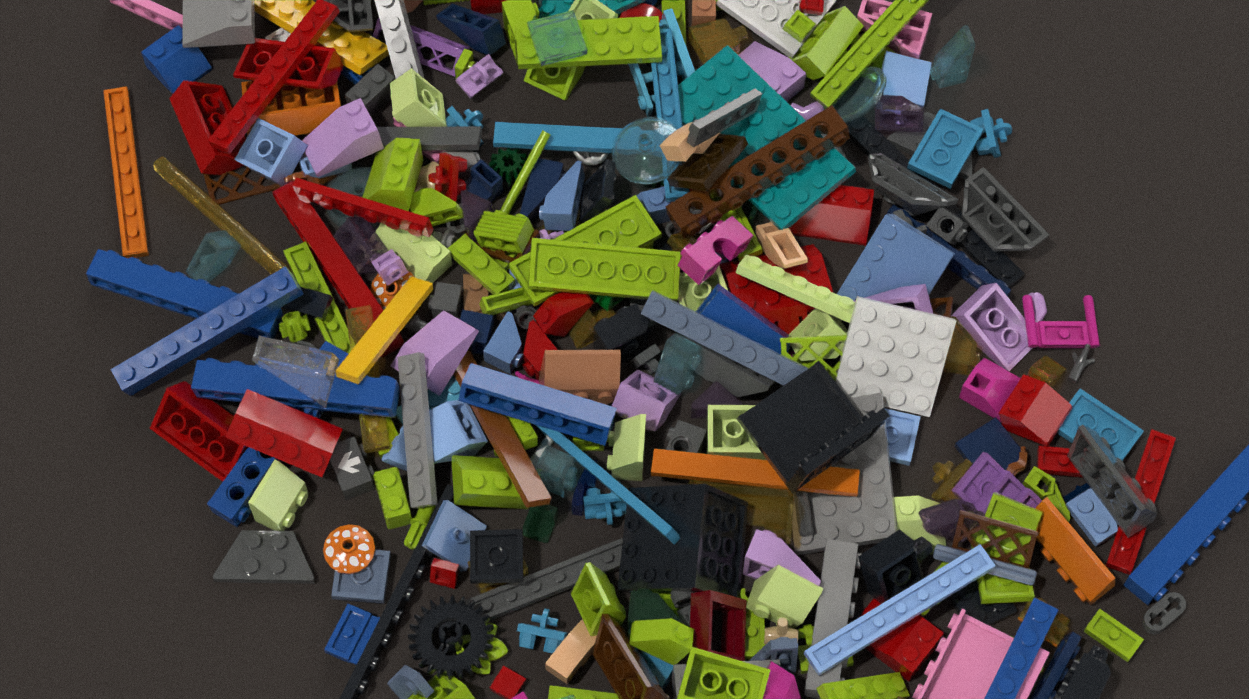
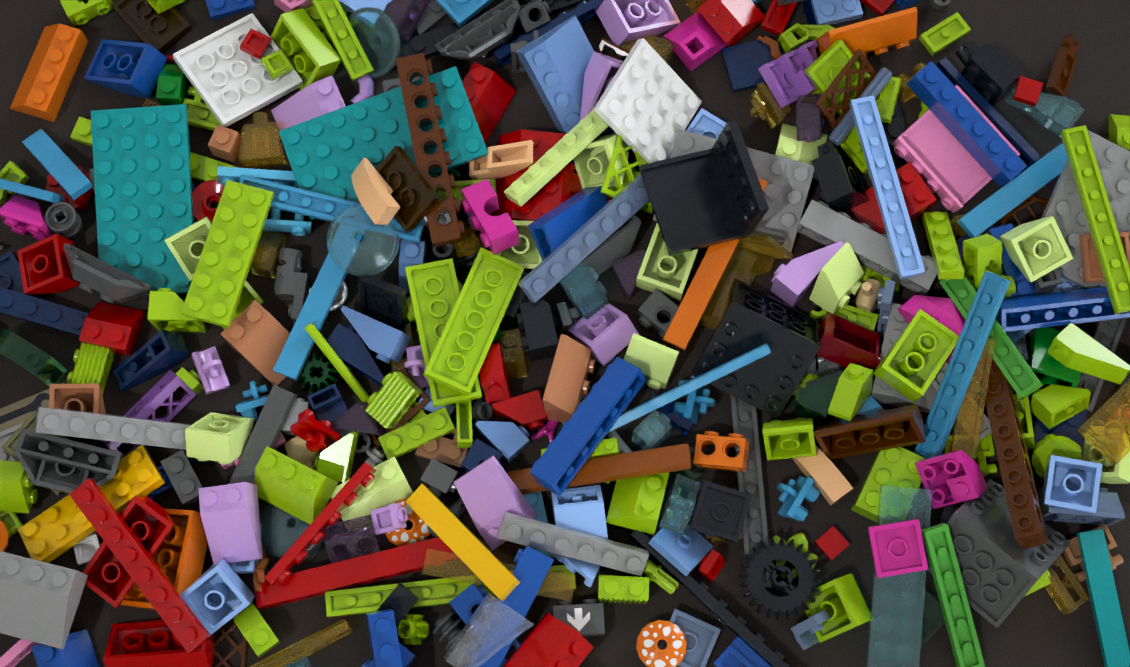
camera: 70 degrees left, 10 degrees up
(250, 198) = (255, 630): none -> lime slope
(491, 515) = (679, 504): none -> clear light blue brick
(525, 101) = (258, 340): none -> nougat slope
(557, 38) = (217, 278): clear light blue plate -> none
(561, 542) = (719, 458): none -> orange brick
(592, 110) = (290, 283): none -> dark grey plate
(610, 84) = (267, 254): none -> clear yellow slope
(724, 117) = (370, 163): dark grey plate -> none

